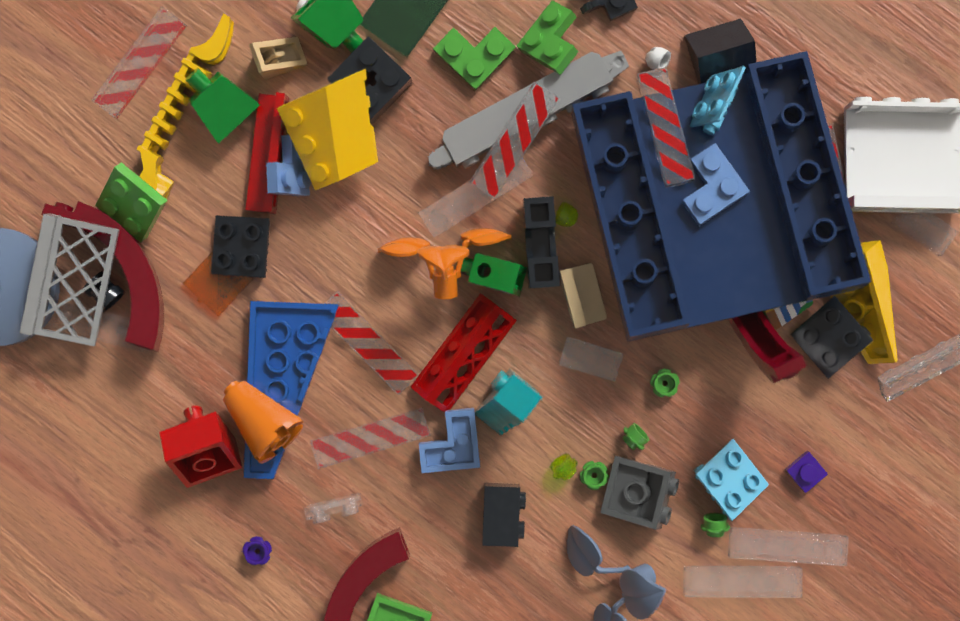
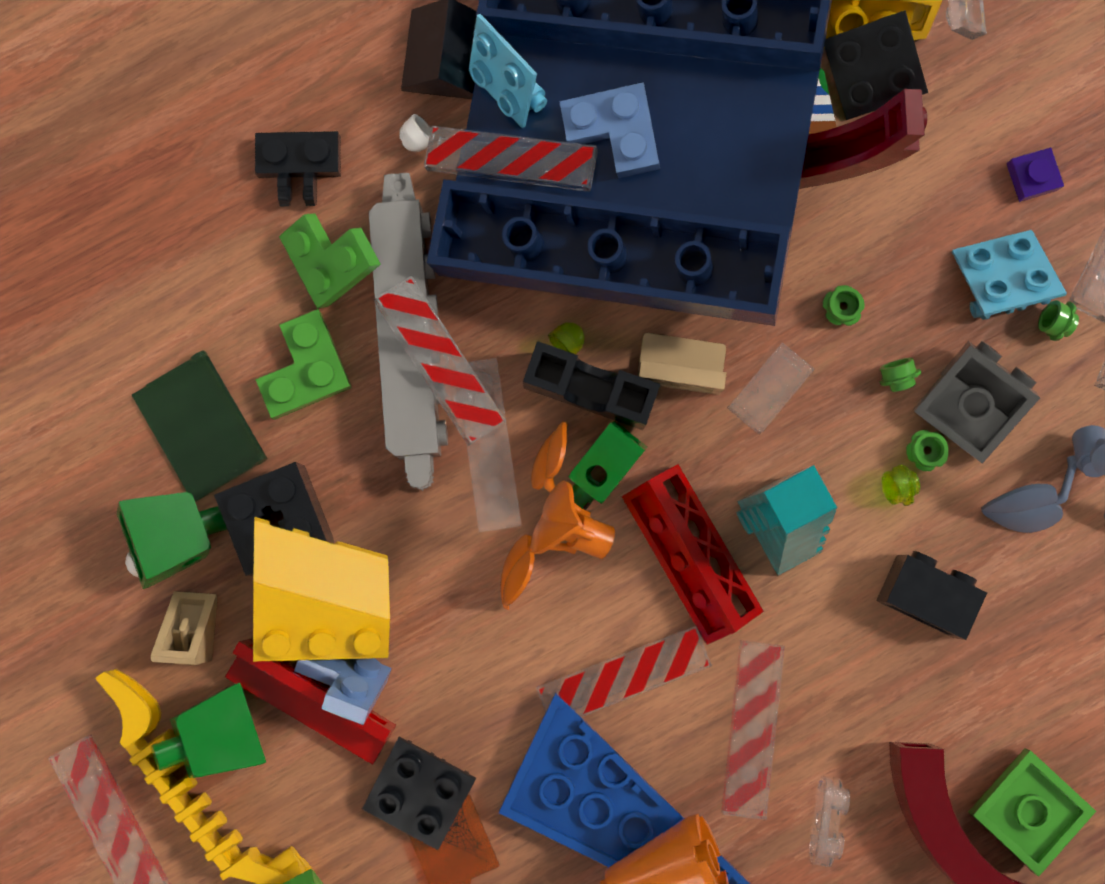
camera: 70 degrees left, 5 degrees down
(460, 448) = (820, 616): medium blue plate -> none

